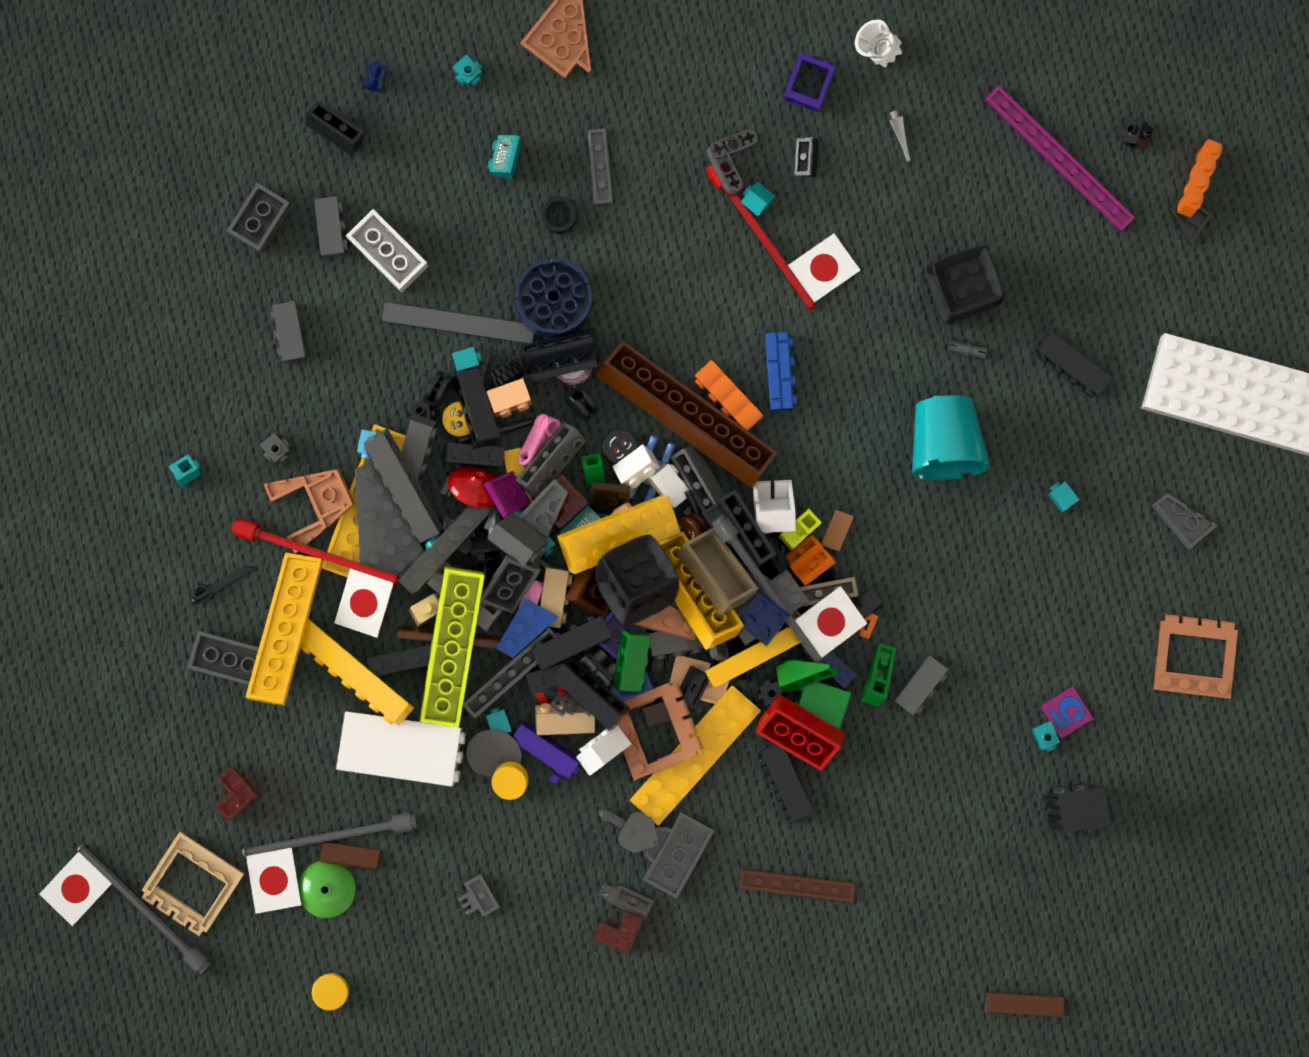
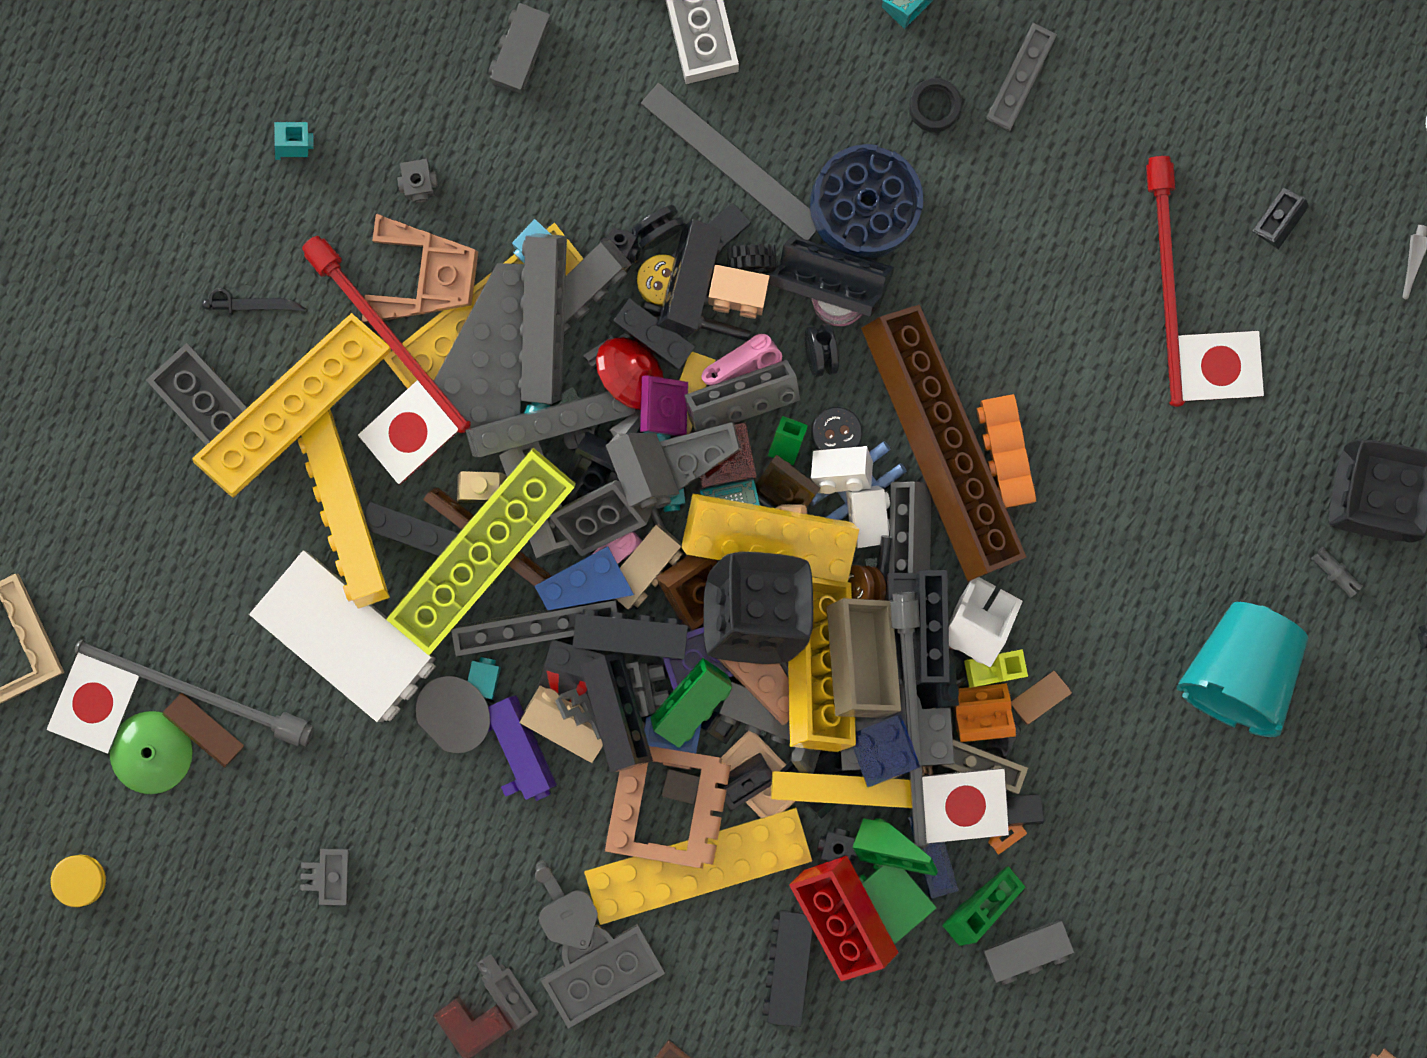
camera: 30 degrees right, 0 degrees up
(240, 793) = (117, 570): clear red brick -> none
(467, 359) = (716, 212): teal brick -> none
(510, 780) = (453, 758): yellow head -> none
(602, 749) = (589, 790): white brick -> none
(724, 158) = (1181, 157): dark grey beam -> none
(757, 198) = (1190, 231): teal brick -> none
(779, 371) = (1088, 460): blue brick -> none
(801, 99) = (1318, 142): dark purple window -> none
(1062, 496) = (1345, 825): teal brick -> none

